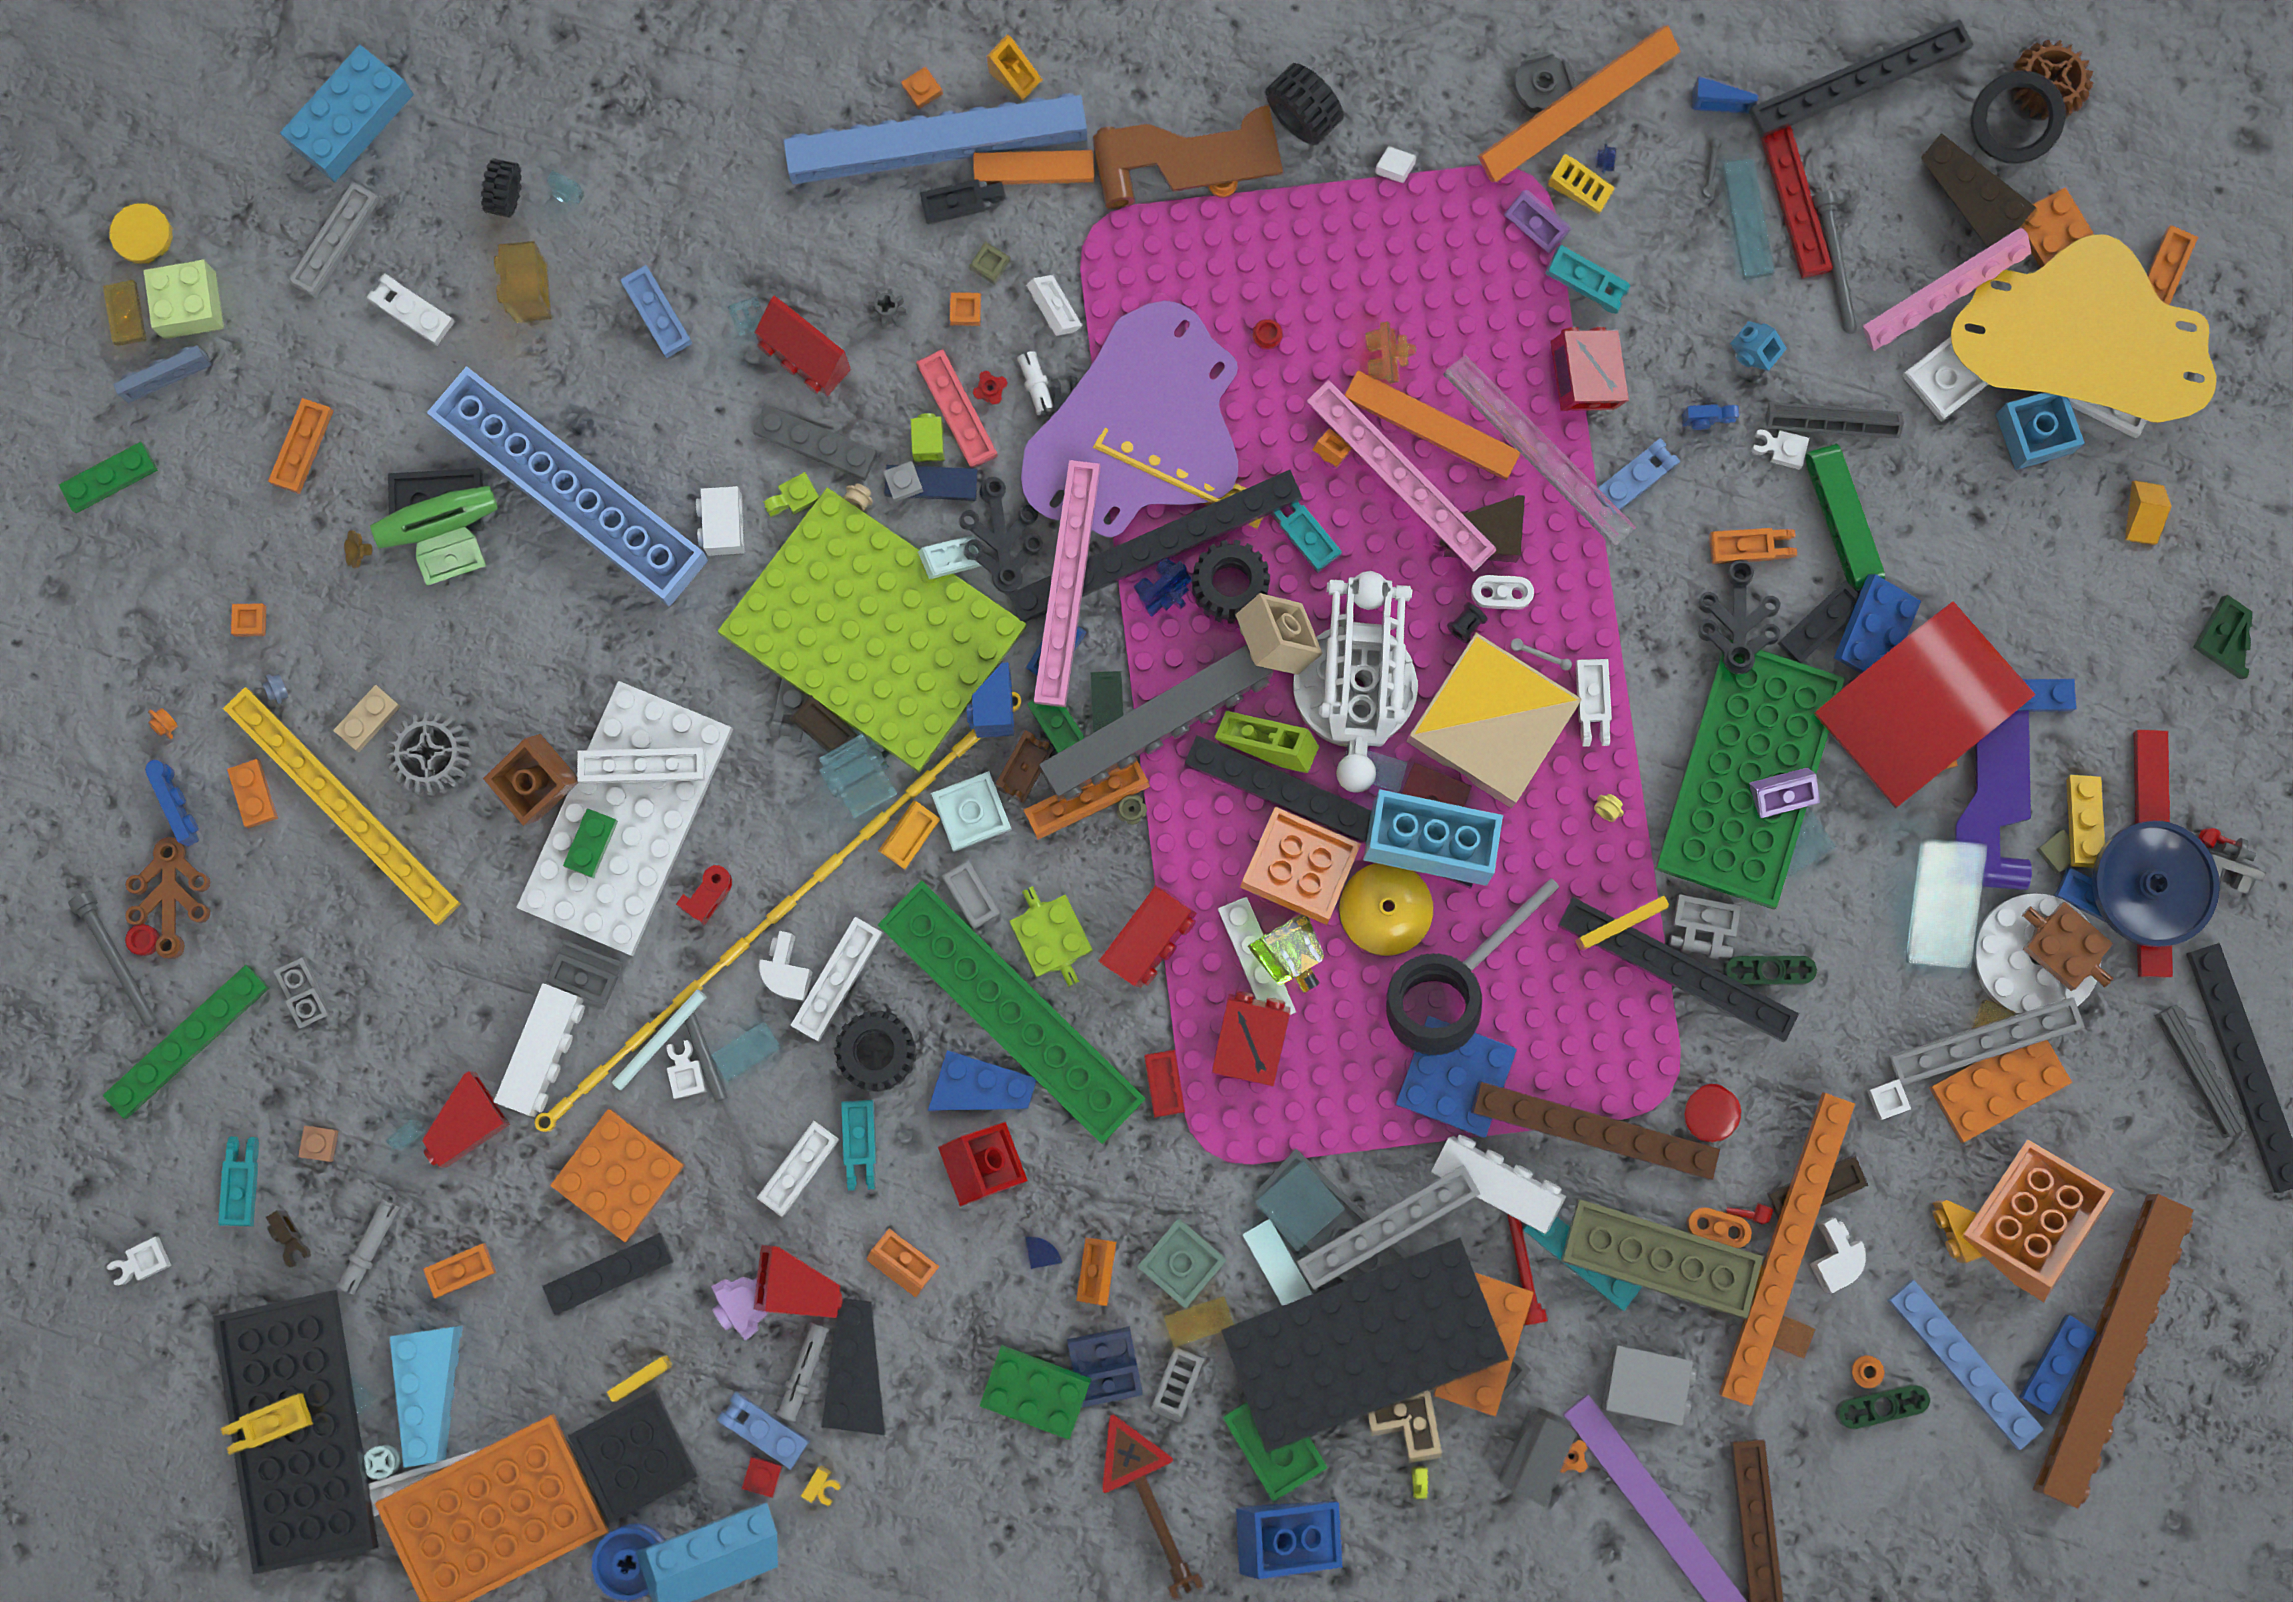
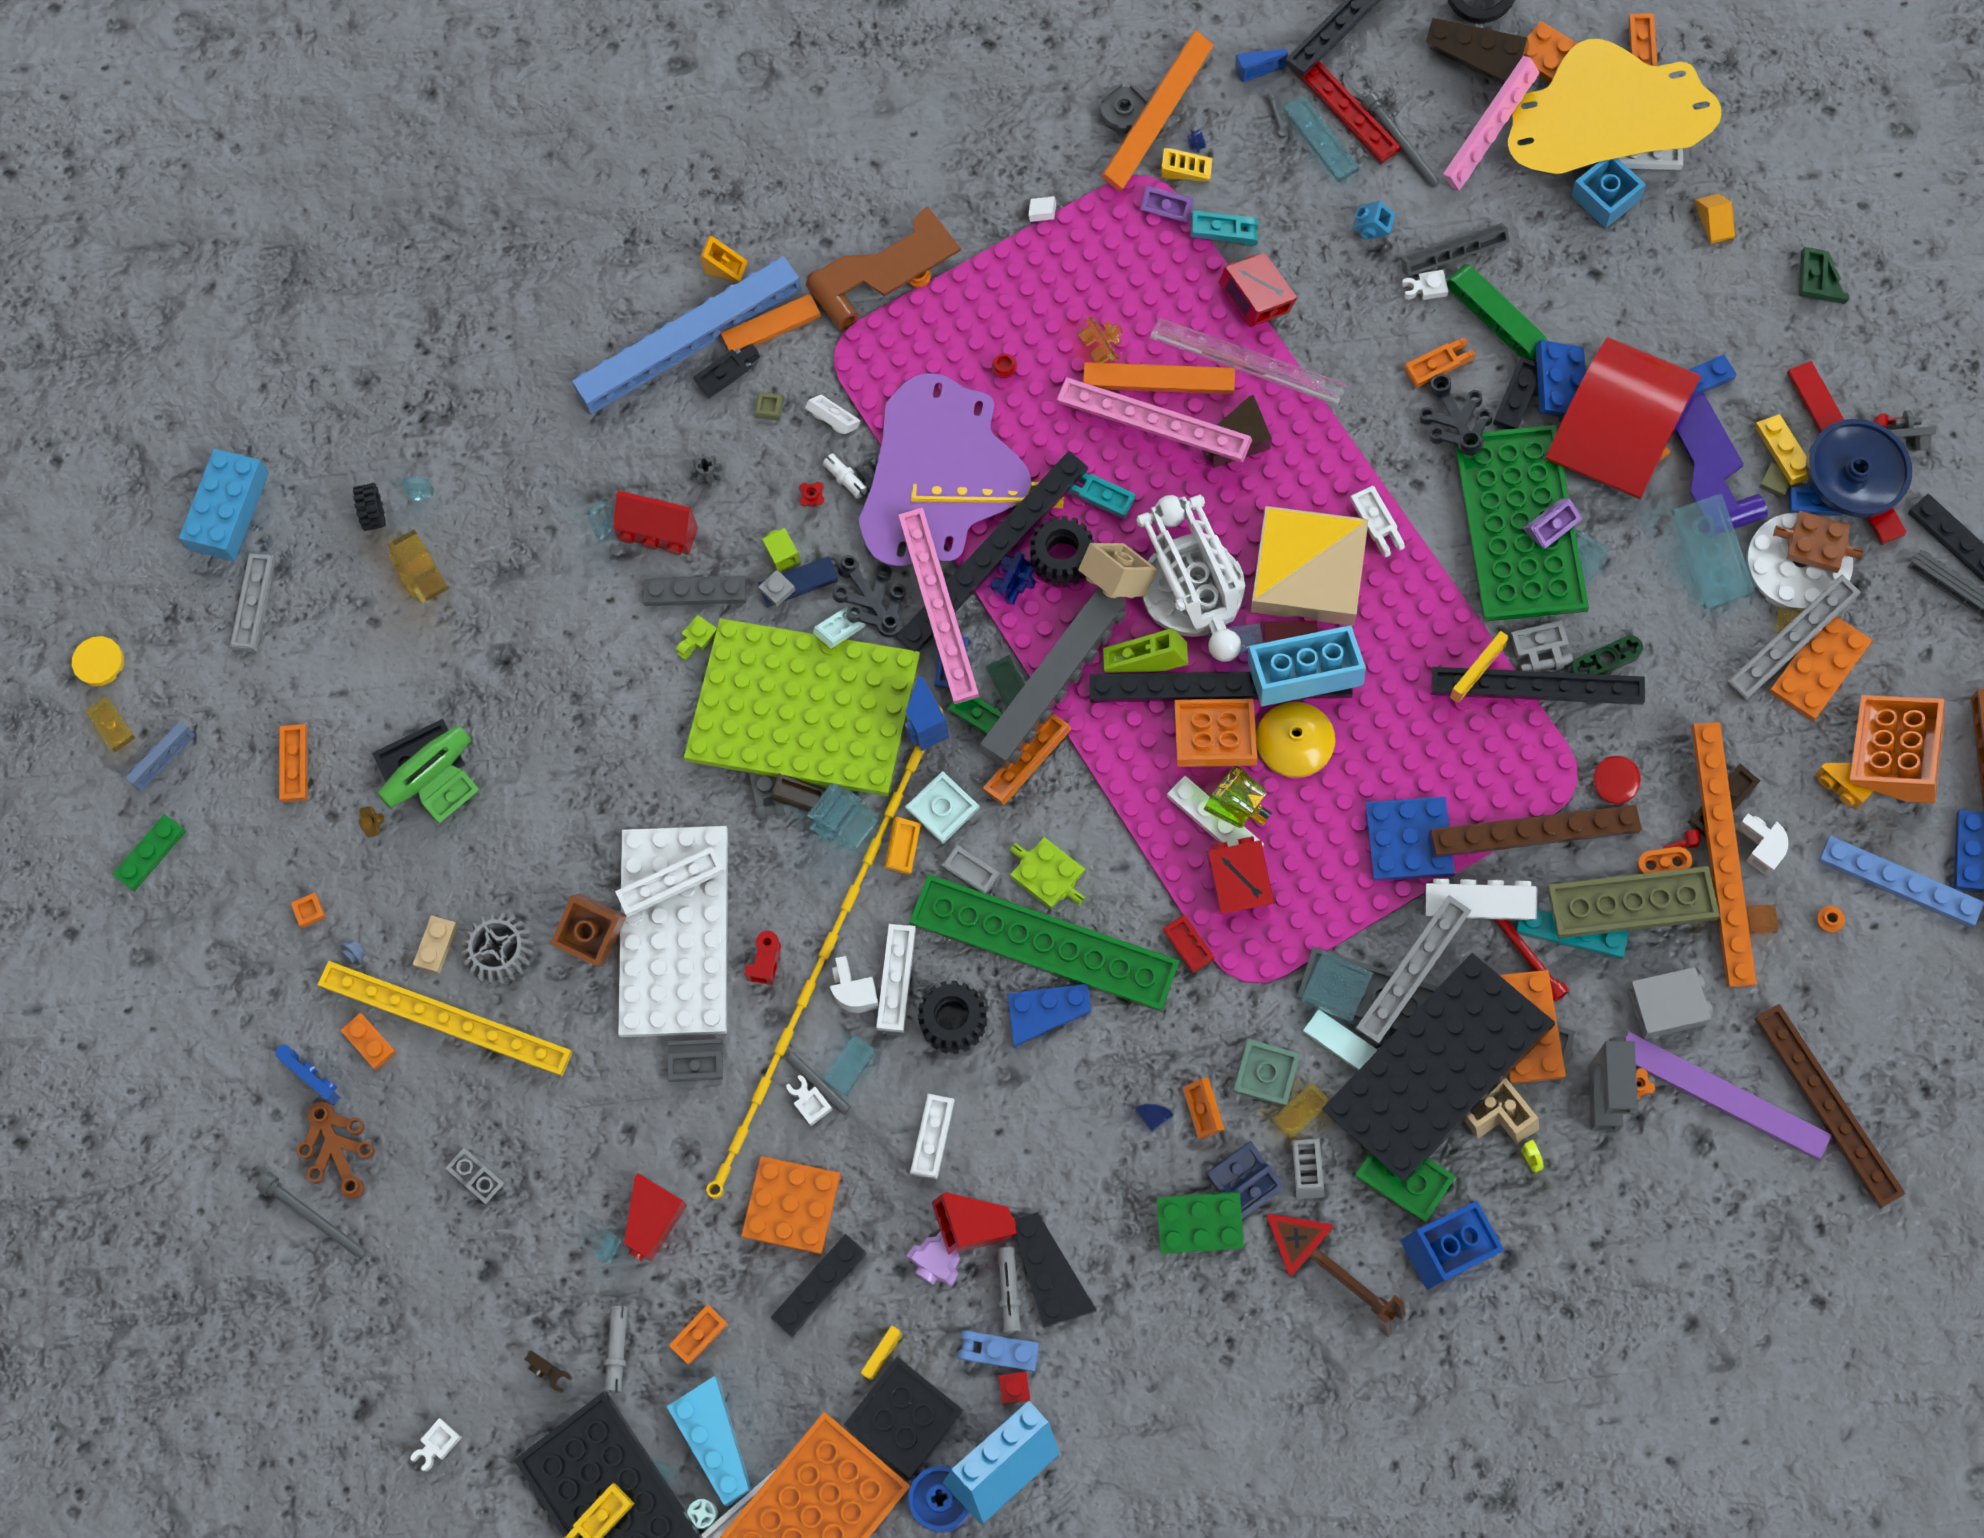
camera: 15 degrees left, 10 degrees down
(142, 939) = (328, 1192): red tile -> none
(162, 722) = (273, 1017): orange plate -> none
(183, 299) = (153, 693): yellowish green brick -> none
(186, 1041) = (397, 1256): green plate -> none
(239, 1184) = (490, 1348): teal hinge -> none
(318, 1143) = (539, 1287): nougat plate -> none
(411, 310) = (335, 627): white plate -> none
(539, 1051) = (686, 1134): white brick -> none
(568, 486) = (518, 701): light blue brick -> none
(590, 843) = (656, 958): green plate -> none
(656, 311) = (529, 547): medium blue plate -> none
(659, 1039) = (777, 1085): light aqua bar -> none
(721, 521) = (649, 677): white brick -> none
(817, 1486) = (1062, 1371): yellow tile -> none
(858, 496) = (747, 614): tan plate -> none
(859, 1140) = (970, 1092): teal hinge -> none
(902, 1262) = (1047, 1172): orange slope -> none
(922, 88) = (659, 304): orange plate -> none
(956, 409) = (794, 520): coral tile -> none
(965, 309) = (766, 445): orange plate -> none
(982, 1163) = (1075, 1066): red slope -> none
(1023, 767) = (967, 757): reddish brown hinge -> none
(1131, 817) = (1062, 746): olive plate -> none
(1149, 937) = (1125, 836): red slope -> none
(1304, 104) = (954, 192): black tyre -> none
(1332, 448) = (1092, 425): orange plate -> none
(1445, 970) = (1365, 761): black tyre -> none
(1467, 622) = (1254, 505): black bush -> none
(1501, 590) = (1269, 472): white plate -> none
(1511, 924) = (1395, 710): light grey bar -> none
(1517, 645) = (1343, 504): light grey hinge -> none
(1609, 807) = (1427, 592): light yellow plate -> none
(1638, 475) = (1331, 348): medium blue plate -> none
(1703, 416) = (1359, 285): blue plate -> none
(1889, 1099) = (1743, 712): white plate -> none
(1894, 1414) = (1875, 934): dark green beam -> none
(1943, 381) = (1521, 188): white plate -> none

